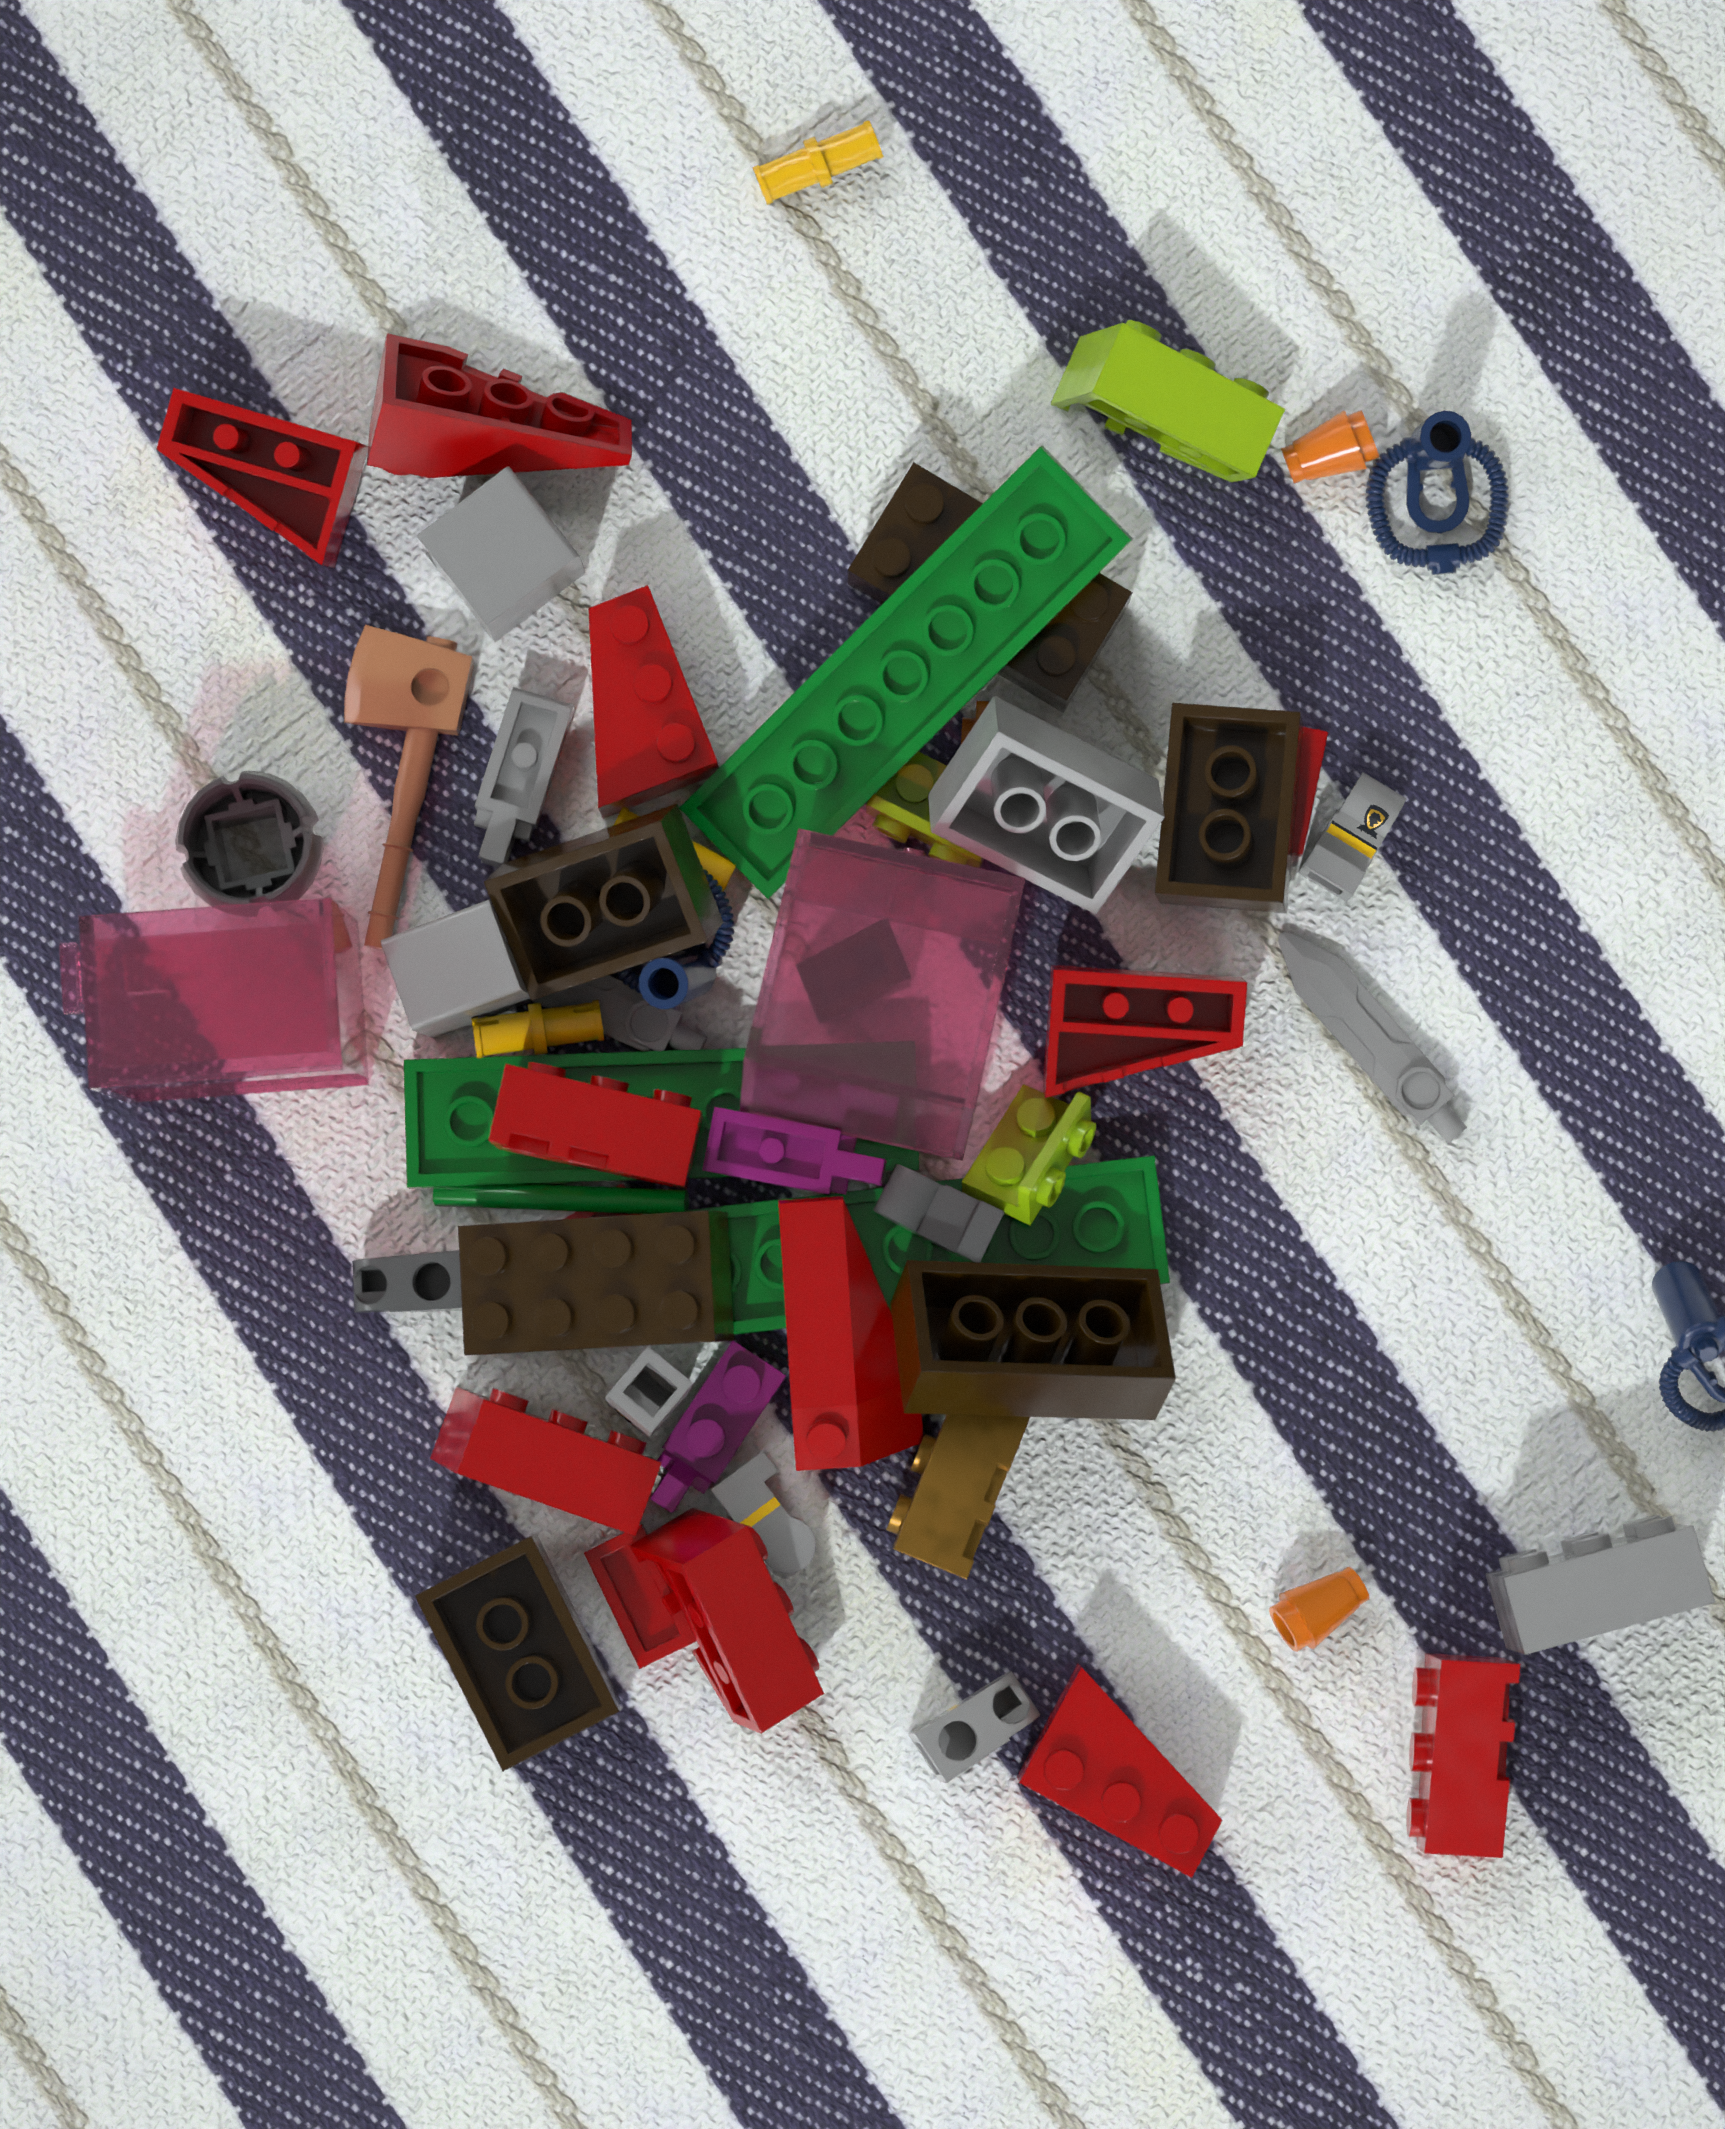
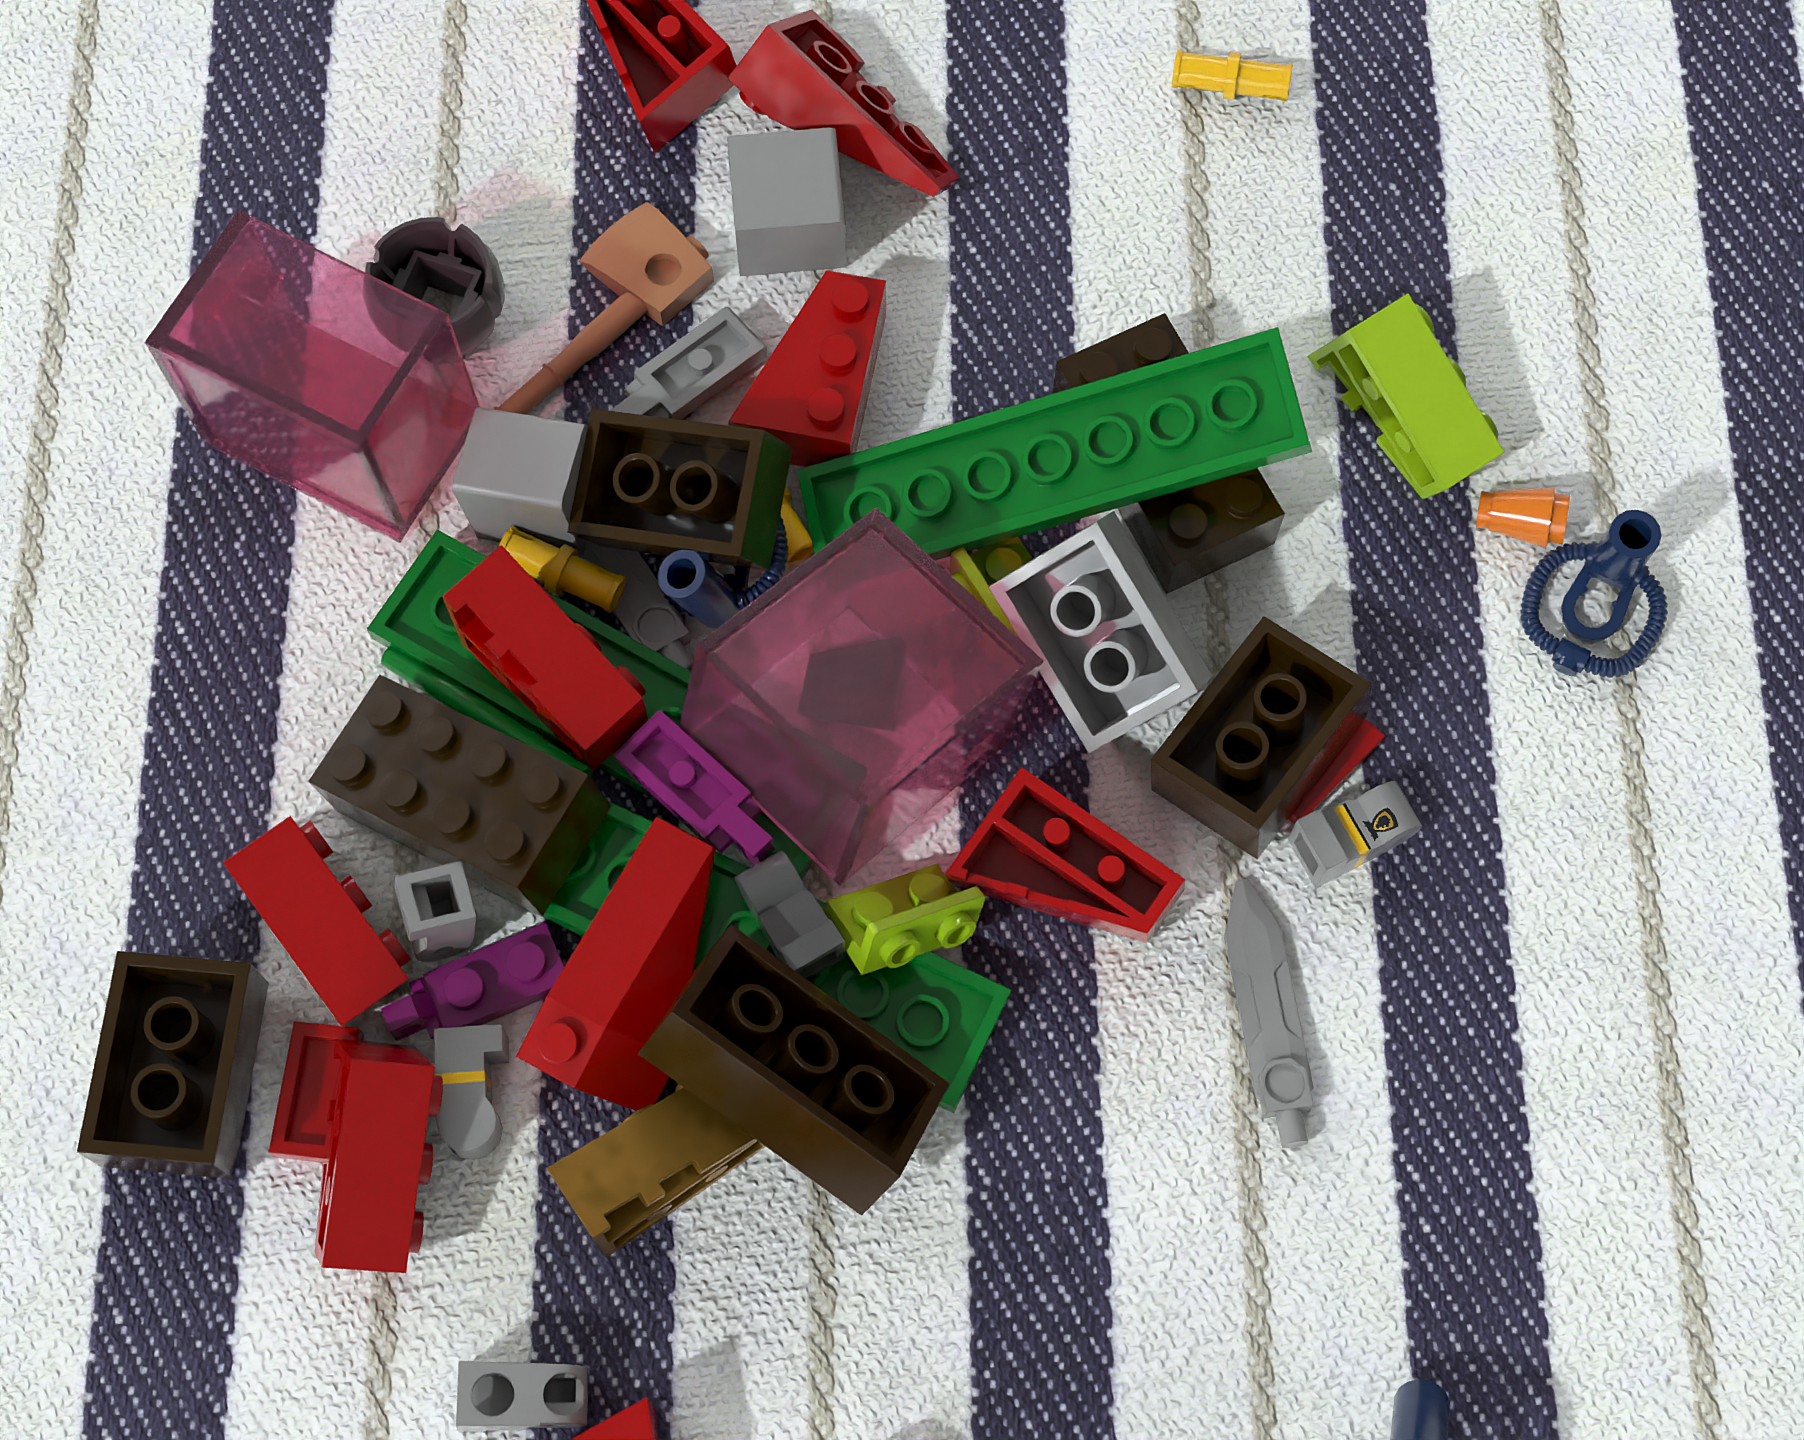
camera: 30 degrees right, 15 degrees down
(408, 1283) = (307, 703): dark grey leg -> none

